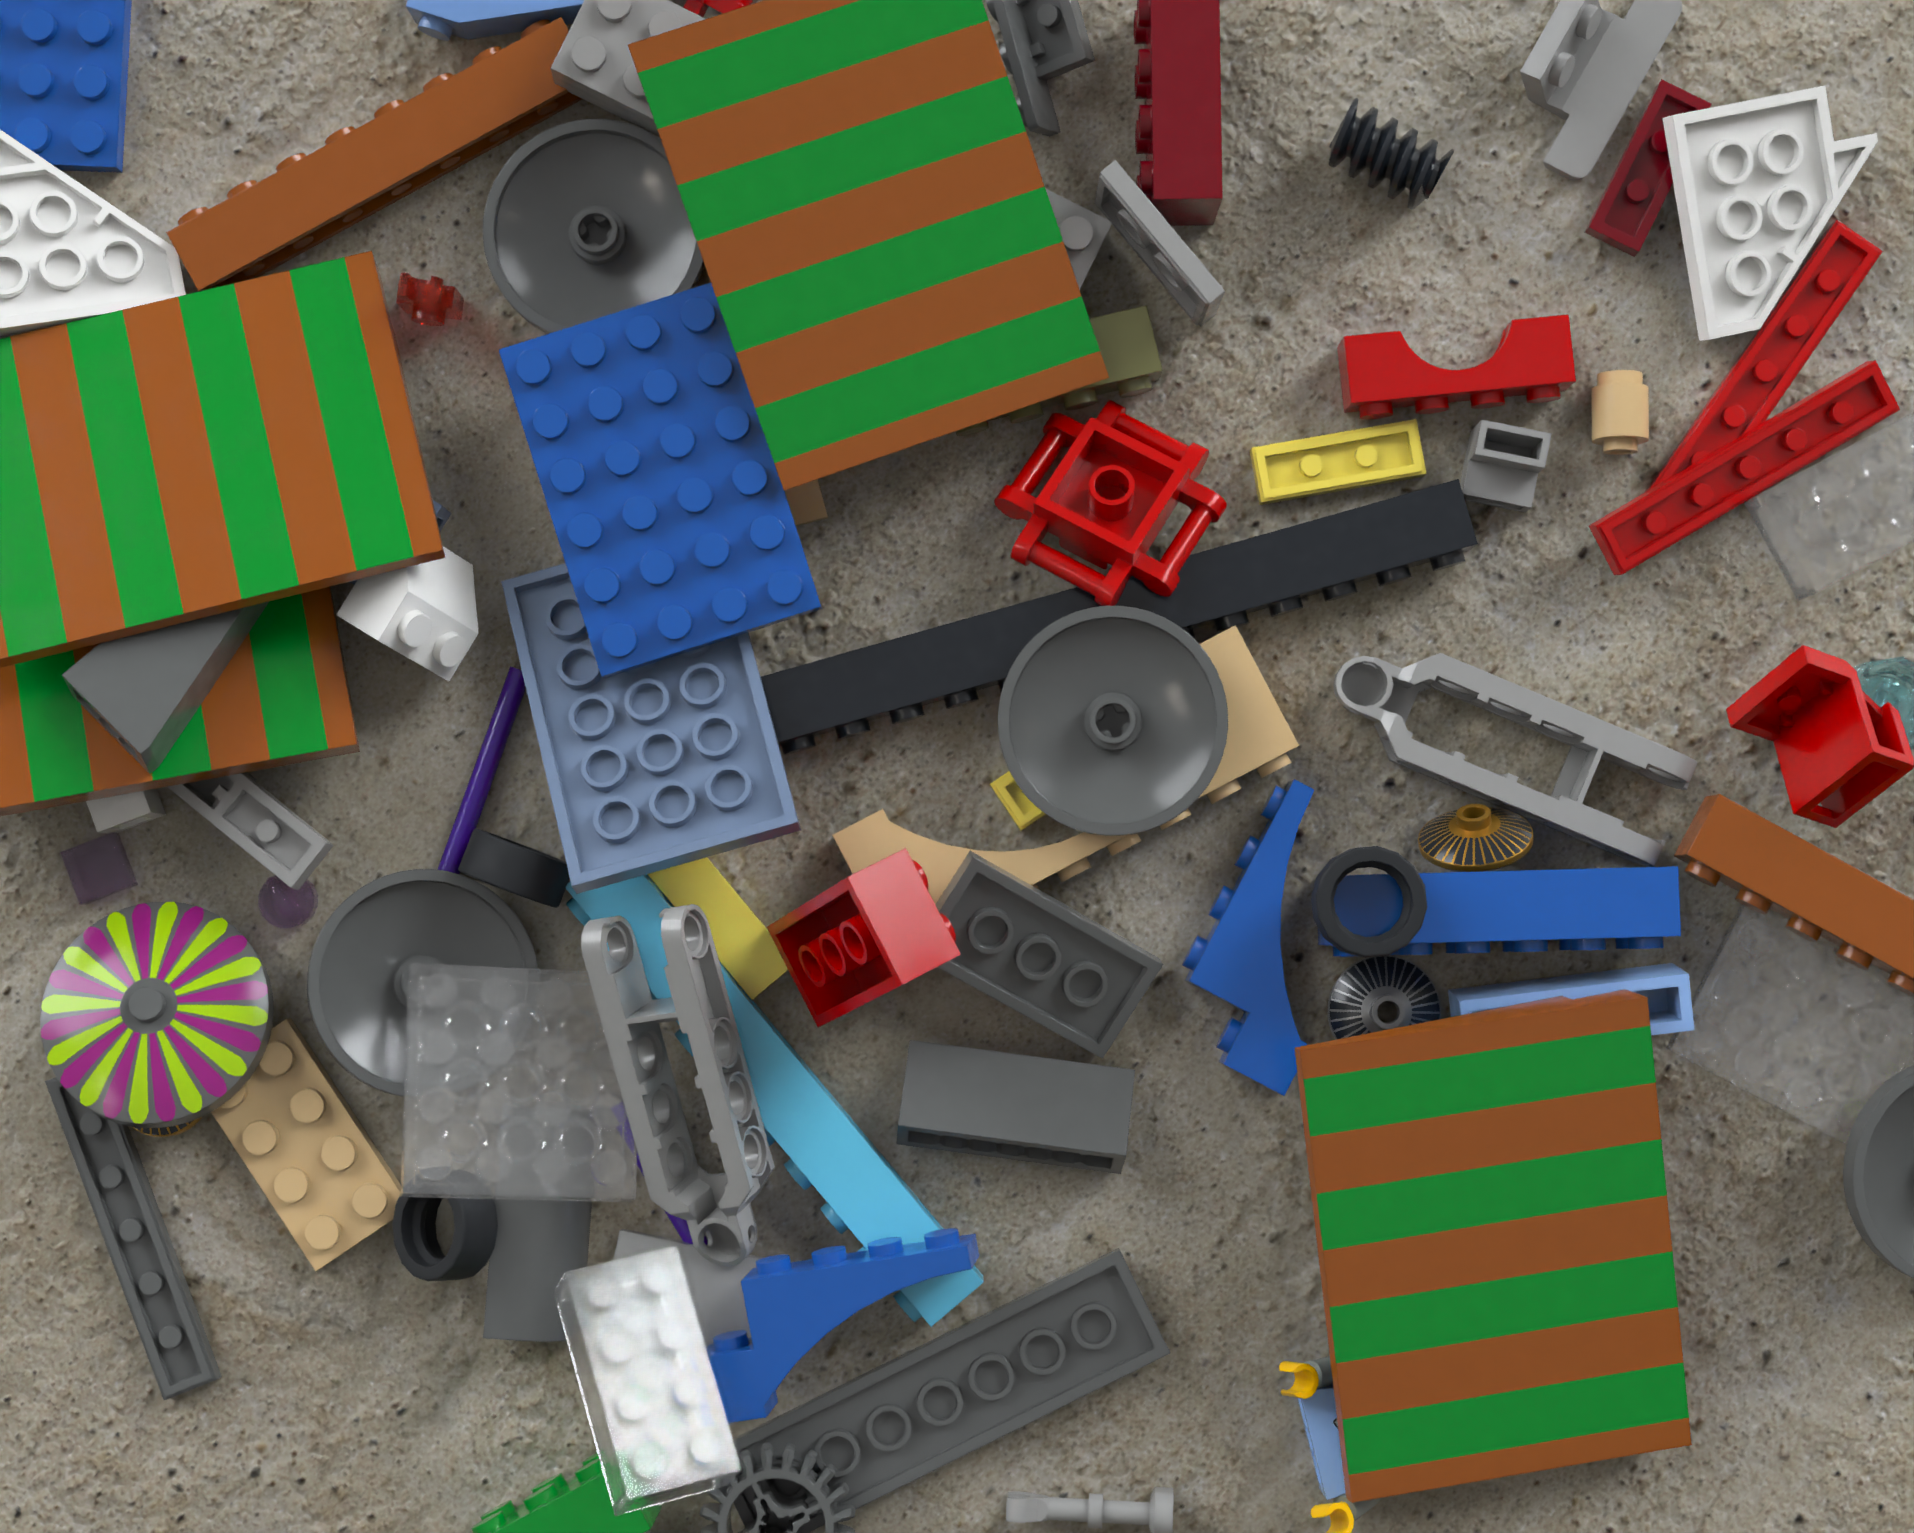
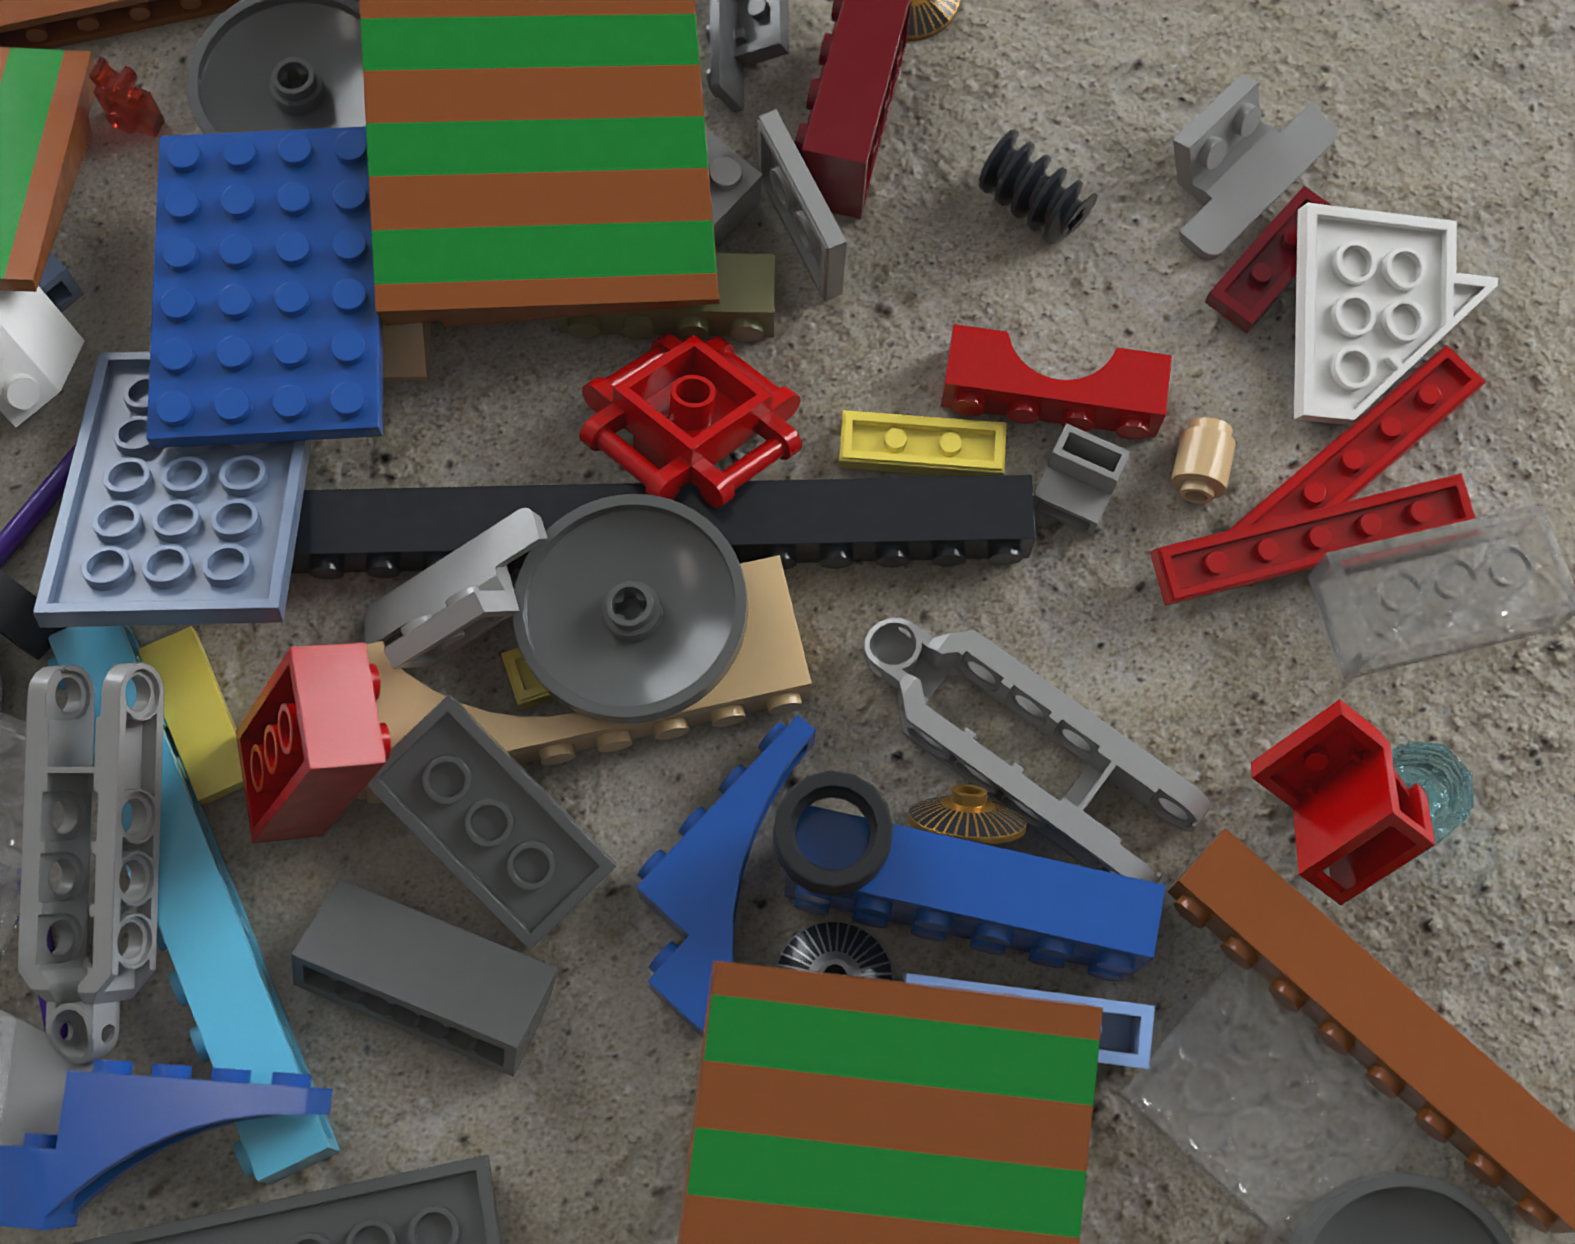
camera: 10 degrees right, 15 degrees down
(939, 749) = (454, 596): none -> light grey plate

